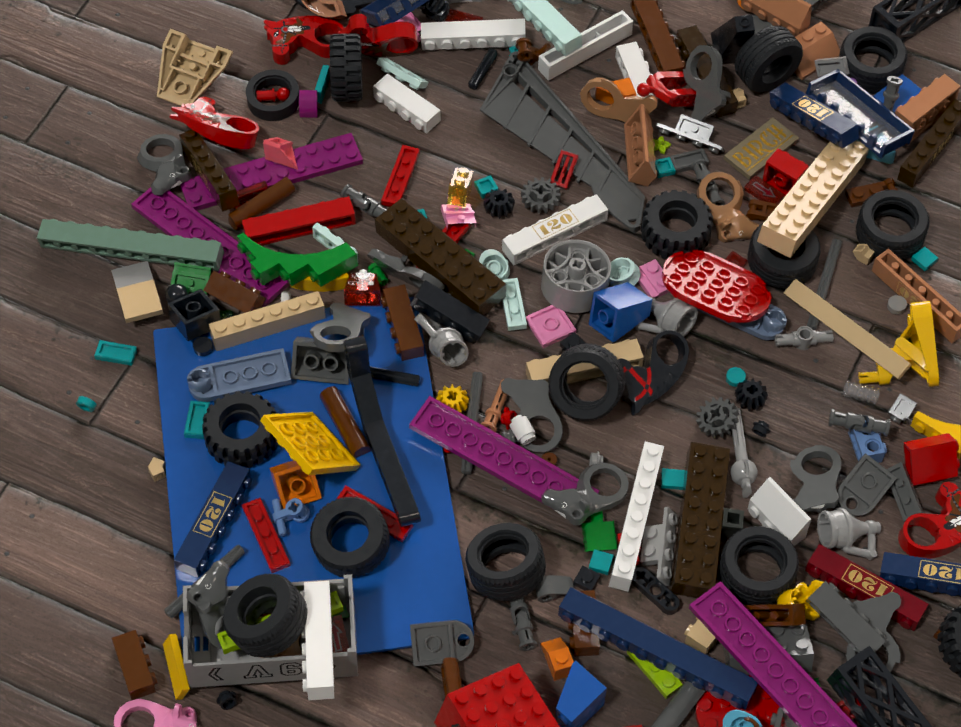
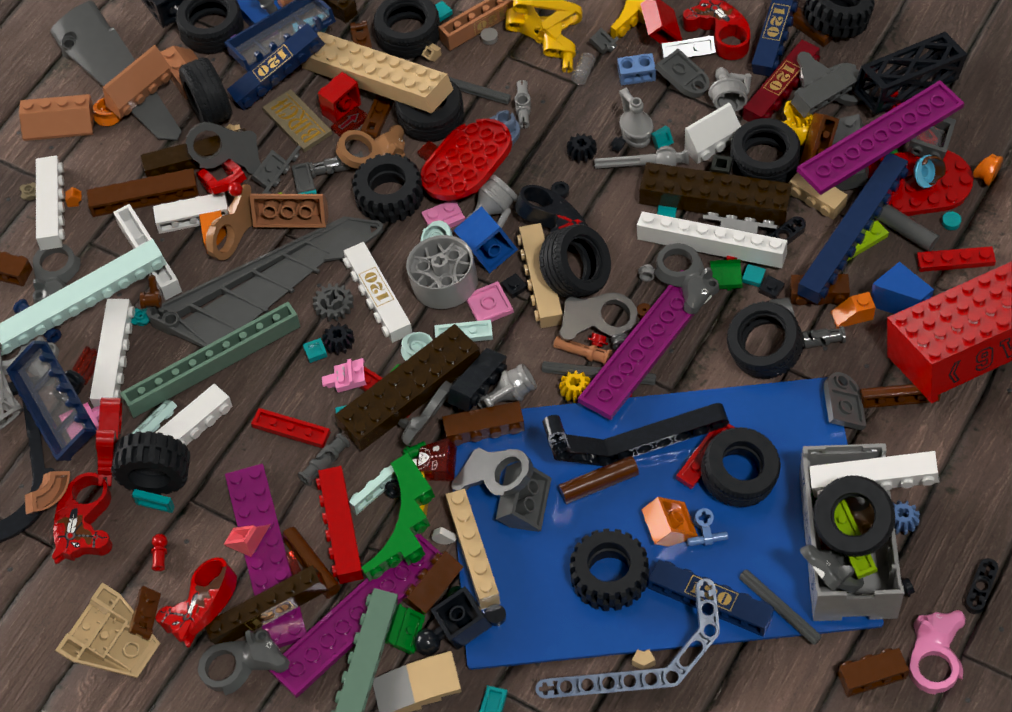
camera: 80 degrees left, 0 degrees up
(134, 463) = (639, 675): none -> sand blue beam
(176, 666) = (874, 632): yellow tile -> none
(194, 420) = (587, 619): teal tile -> none
(210, 89) = (144, 612): none -> reddish brown plate
(239, 374) = (537, 576): sand blue plate -> none
(266, 535) = (726, 552): red tile -> none
(268, 78) = (166, 572): black tyre -> none
(300, 703) = (905, 517): none -> medium blue gear
(308, 104) = (179, 514): magenta brick -> none
(309, 443) = (636, 498): yellow plate -> none
(394, 376) = (542, 444): black axle -> none
(460, 187) = (319, 368): clear yellow brick -> none
(469, 107) = (210, 359): none -> sand green brick
(482, 69) = (155, 349): black axle -> none
(522, 429) = (618, 322): white brick -> none
(559, 184) = (302, 282): red tile -> none
(697, 380) = (561, 188): none -> black tile
(717, 417) = (612, 178): dark grey gear -> none
(732, 36) = (169, 118): black slope -> none
(734, 376) = (559, 160): teal tile -> none
(772, 468) = (662, 137): none -> teal plate
(785, 438) = (634, 122): none -> light grey piece
(818, 490) = (686, 102): dark grey animal -> none
(828, 65) = (216, 49): light grey tile -> none
(847, 329) = (521, 66): tan tile -> none
(855, 421) = (625, 64): dark grey piece -> none

